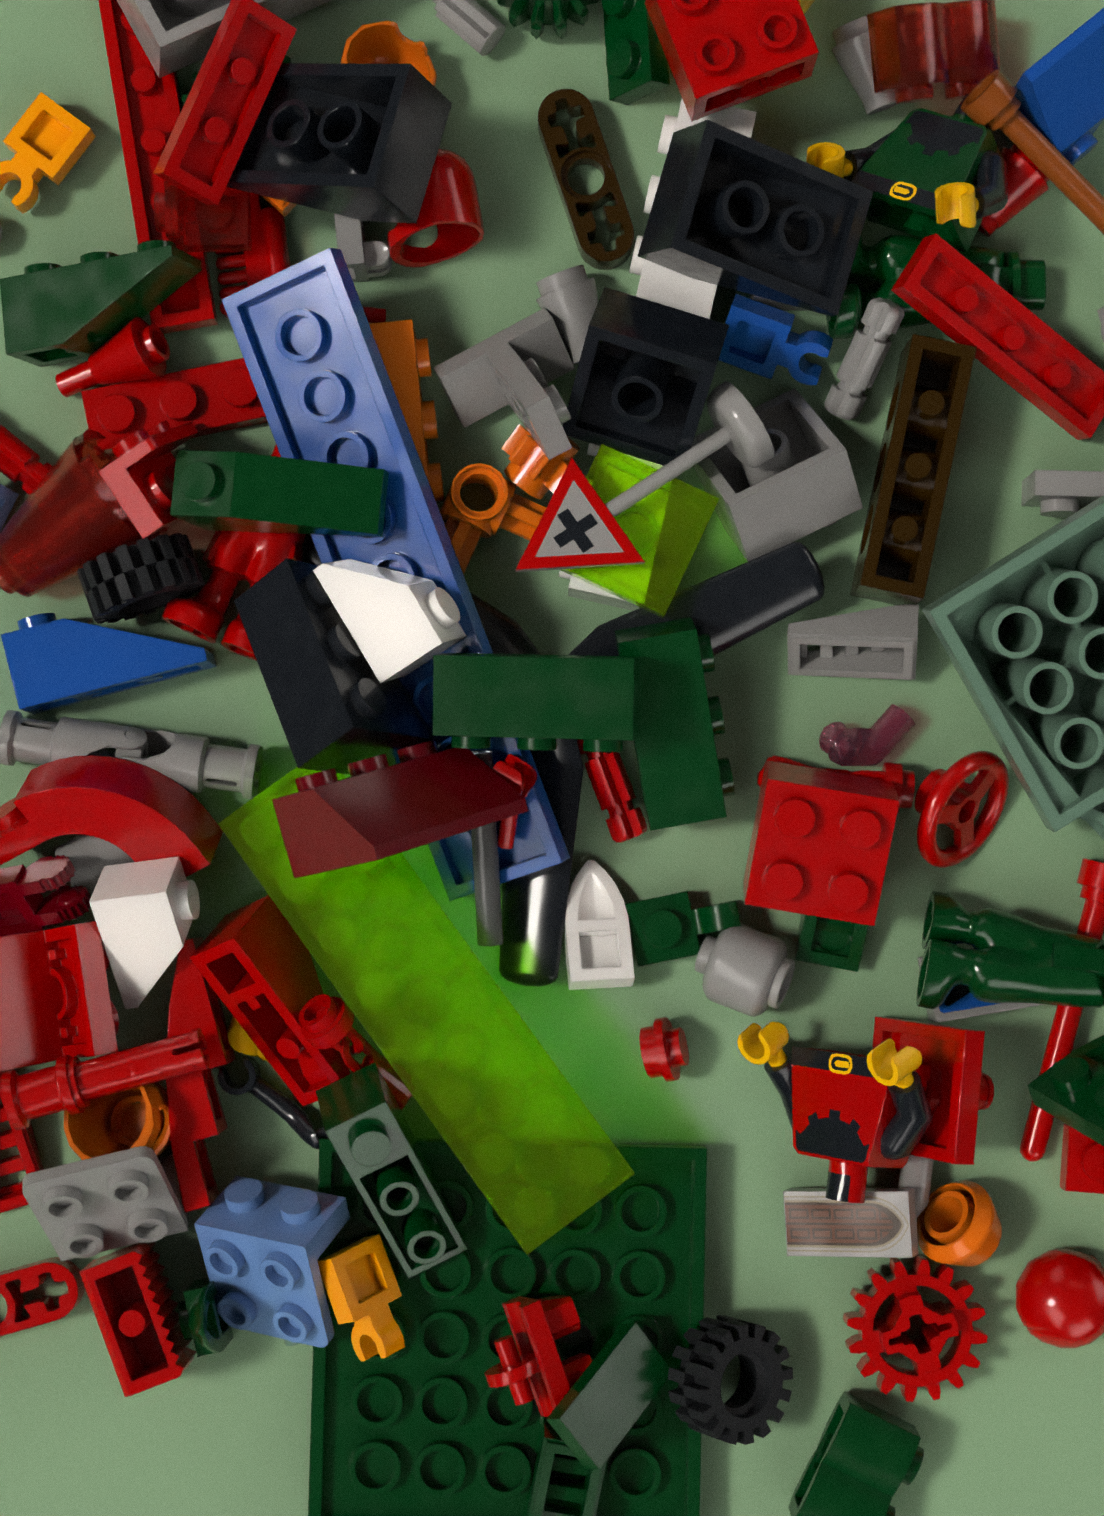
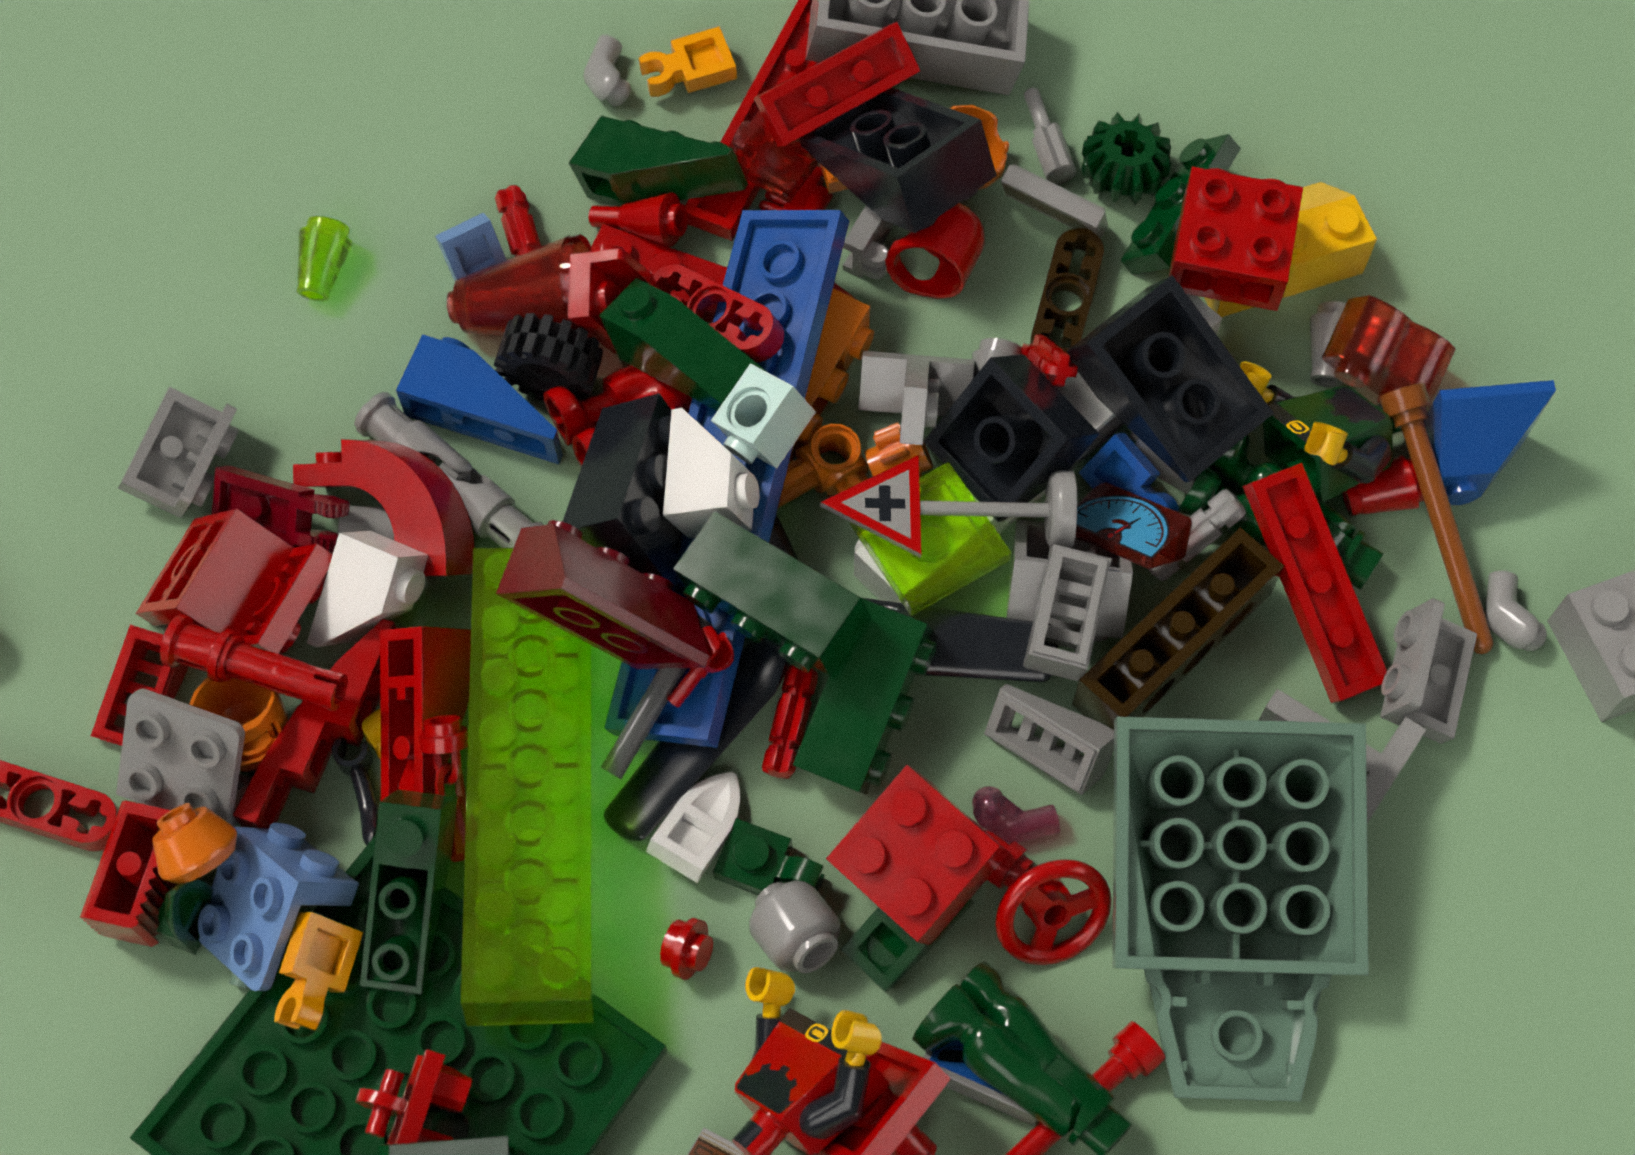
camera: 35 degrees right, 20 degrees down
(180, 1273) = (191, 843): none -> orange cone
(296, 417) = (706, 292): none -> red beam
(429, 508) = (762, 417): none -> light aqua brick
(510, 78) = (1053, 200): none -> light grey tile
(626, 271) = (1050, 360): none -> red axle
(807, 390) = (1132, 526): none -> slope
(840, 541) = (1054, 660): none -> light grey slope

